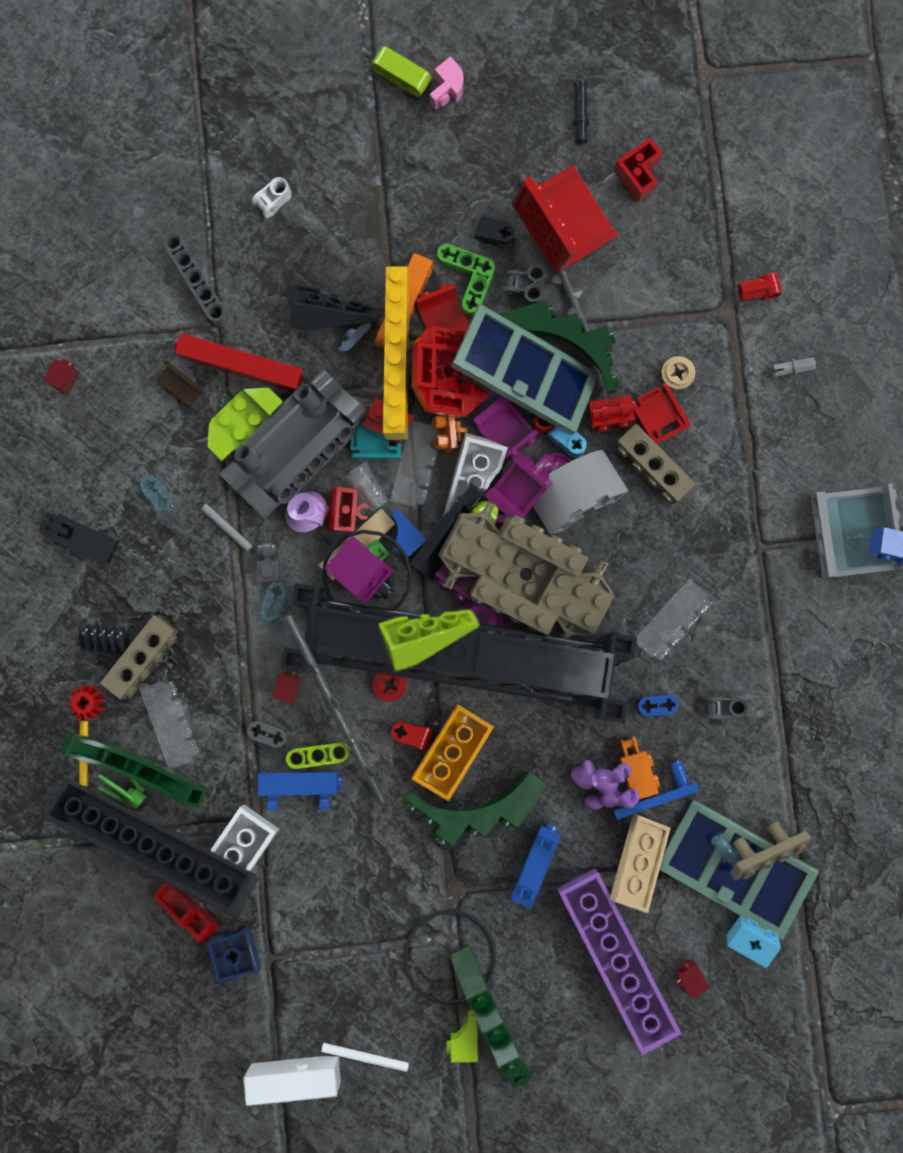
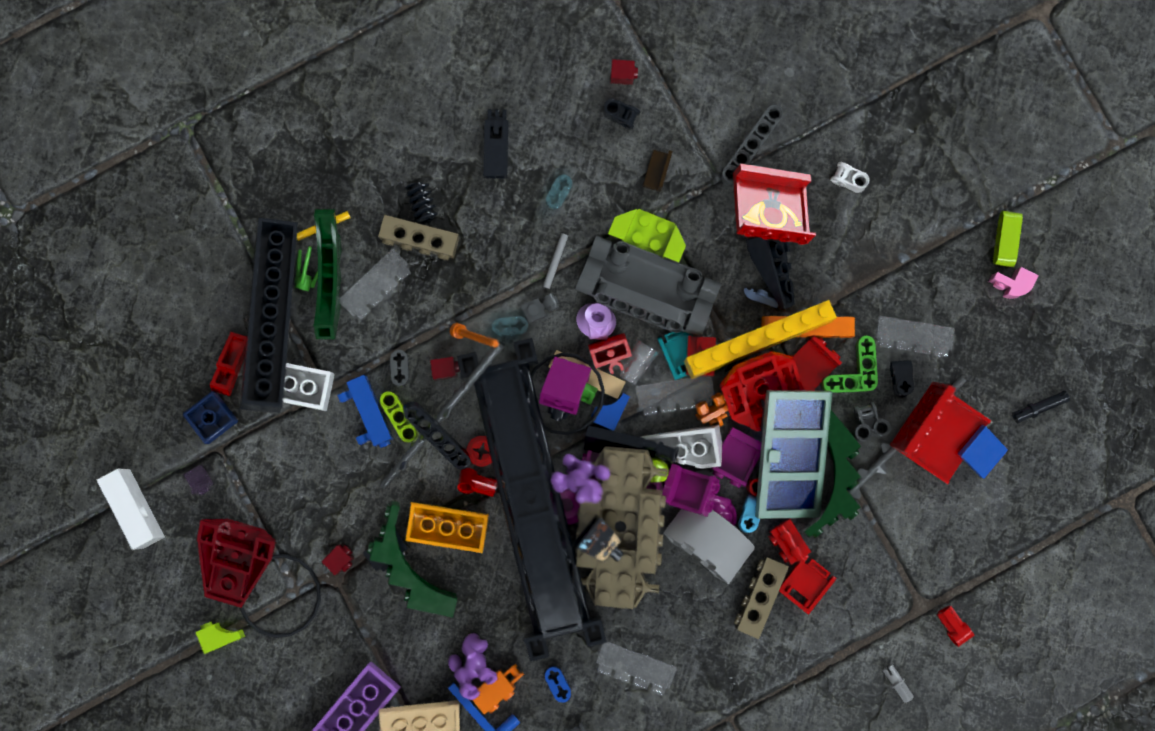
camera: 65 degrees right, 0 degrees up
(89, 710) = (367, 203): red gear -> none
(104, 395) = (622, 113): none -> black piece
(238, 362) = (697, 211): red brick -> none
(256, 655) = (459, 331): none -> orange piece
(263, 283) = (772, 204): none -> panel
(294, 994) = (198, 480): none -> clear purple bracket
(344, 723) = (432, 428): none -> black beam
(365, 1057) = (171, 560): white bar -> none
(390, 991) = (232, 558): none -> dark red wedge
(416, 708) = (471, 482): none -> red piece
(416, 735) = (448, 491): red piece -> none
(417, 639) = (525, 460): lime wedge -> none
(438, 879) = (339, 559): none -> dark red brick
(454, 206) = (911, 333): none -> clear windscreen
(462, 594) = (578, 479): none -> medium lavender animal
(489, 1018) = (243, 649): dark green arch -> none
(532, 599) = (599, 541): none -> torso
(535, 865) = (383, 635): blue brick -> none
(601, 186) = (982, 451): none -> blue tile
(635, 169) = (1010, 474): red brick -> none
(680, 364) = (849, 594): tan gear -> none

